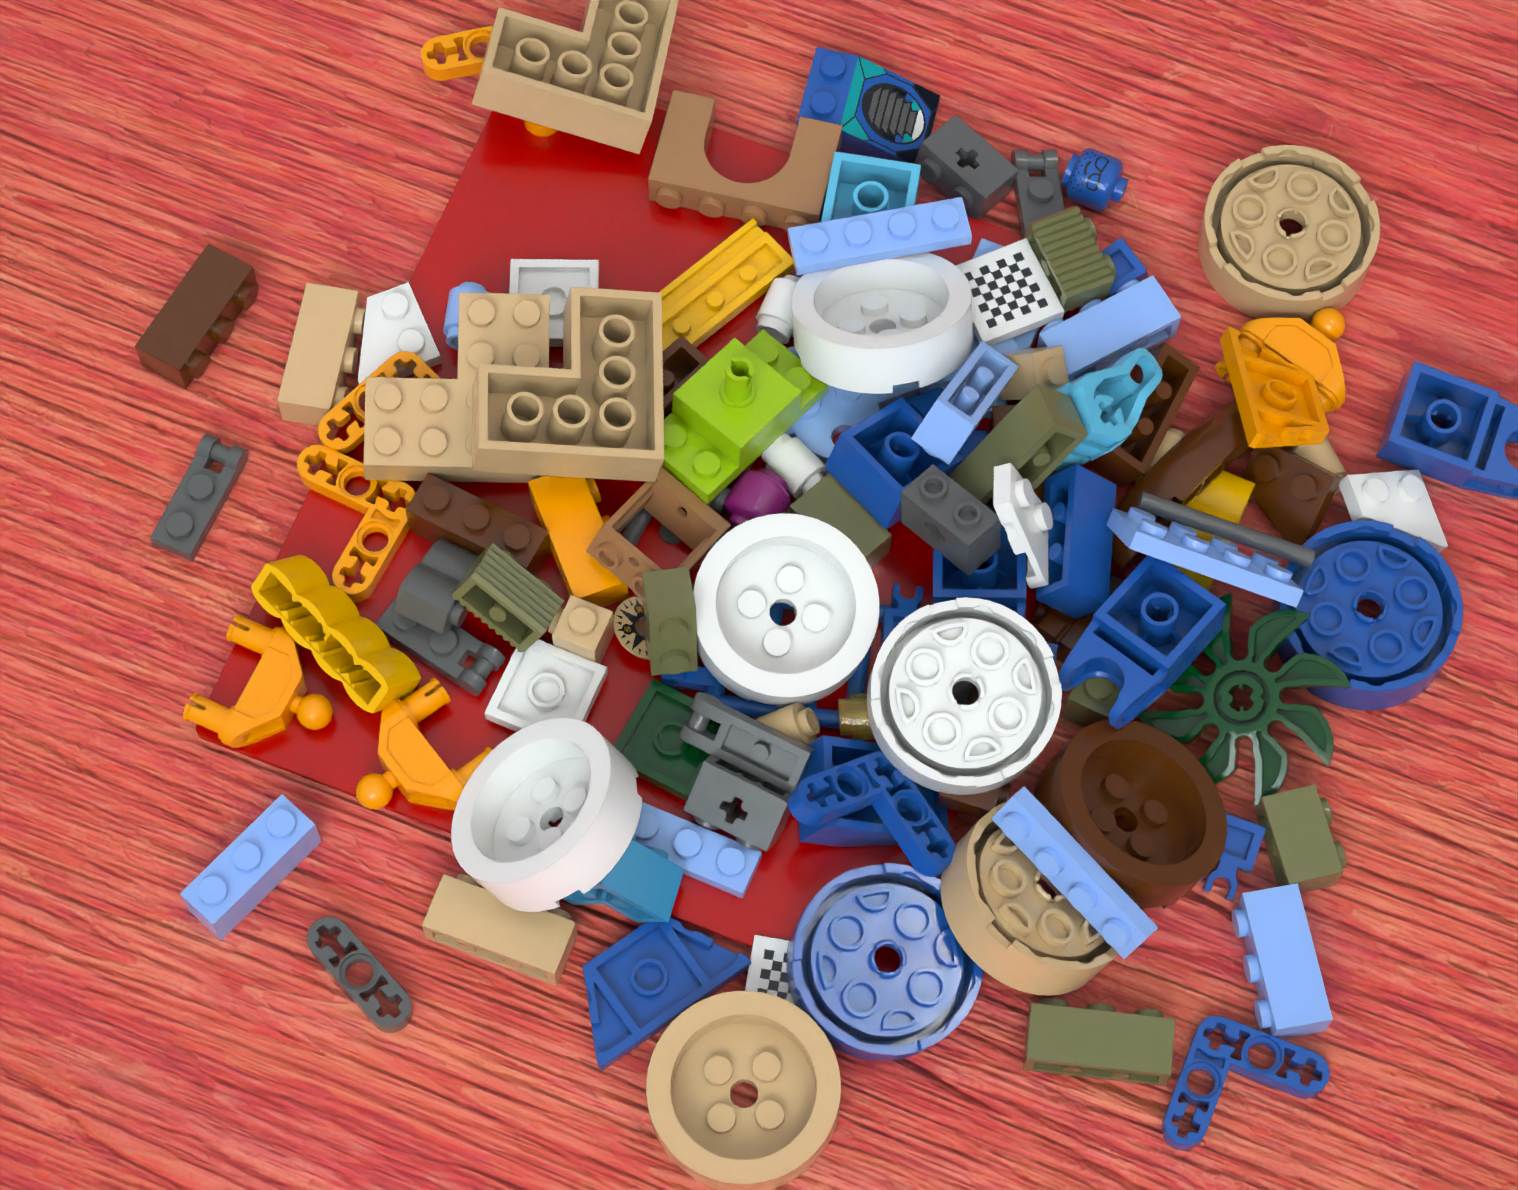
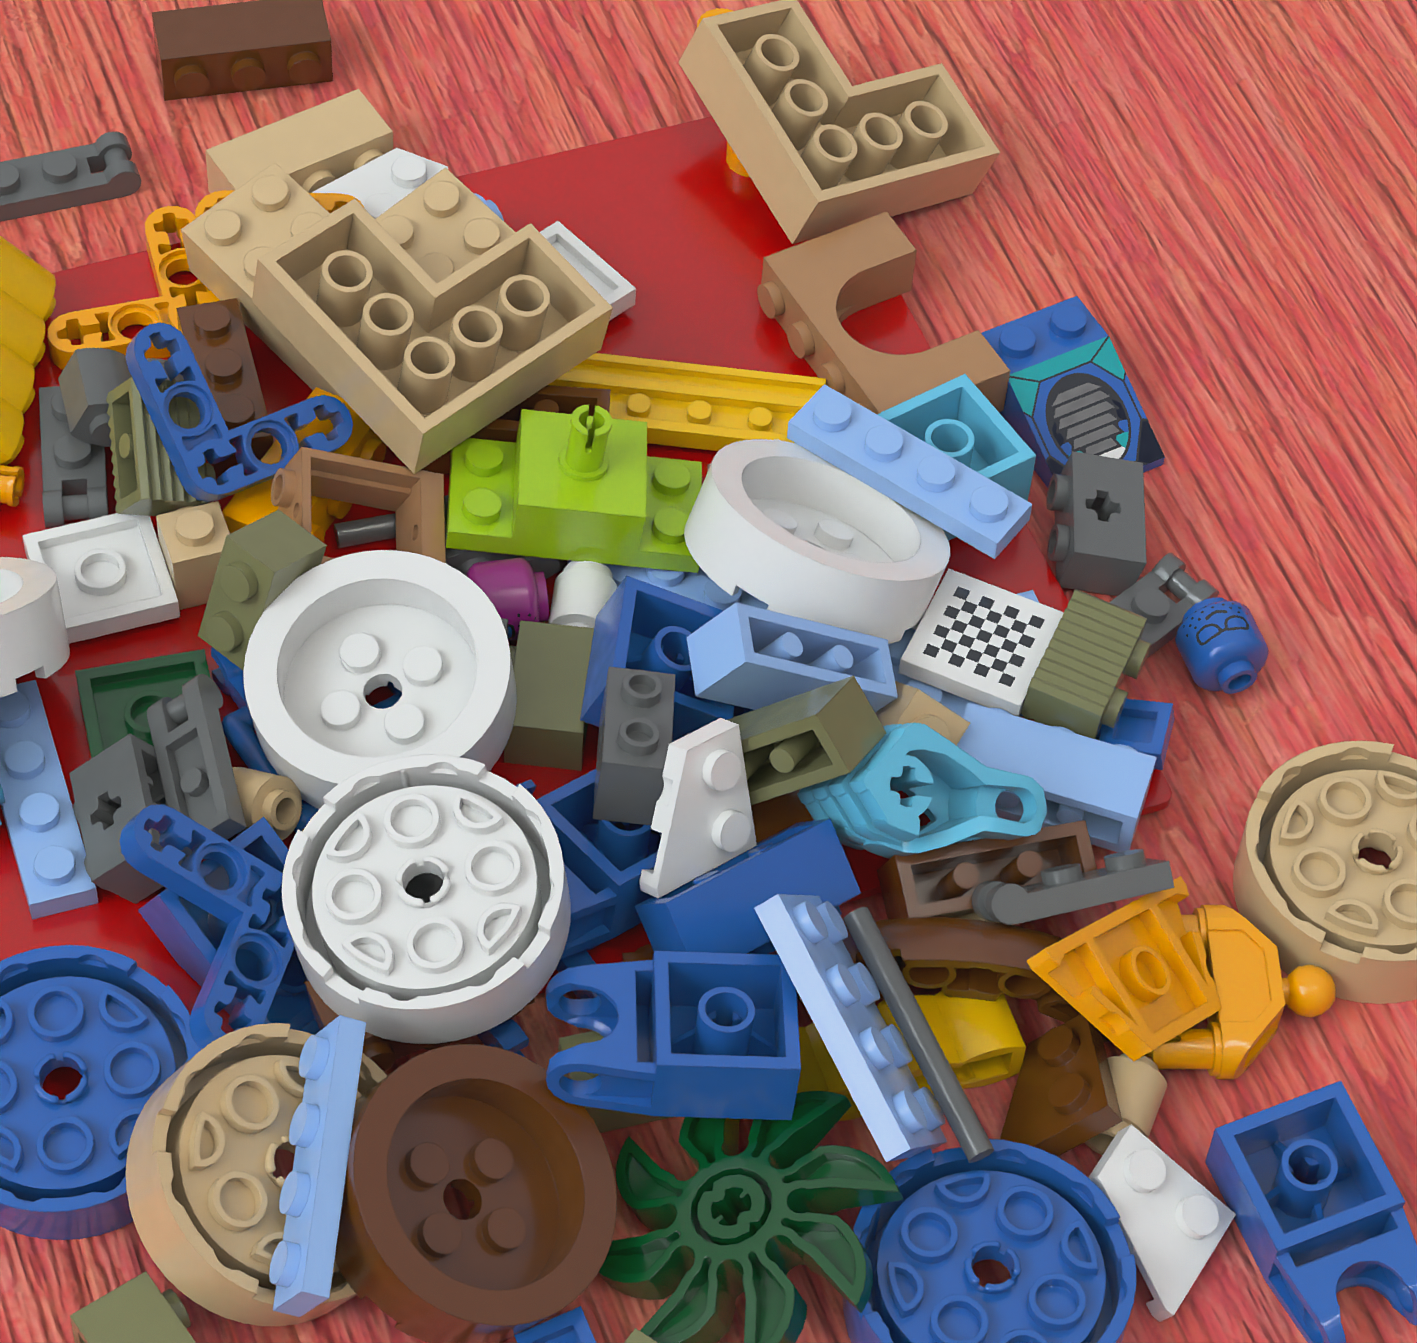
camera: 45 degrees right, 15 degrees down
(542, 563) = (211, 436): none -> blue beam
(1203, 385) = (1068, 889): none -> dark grey plate

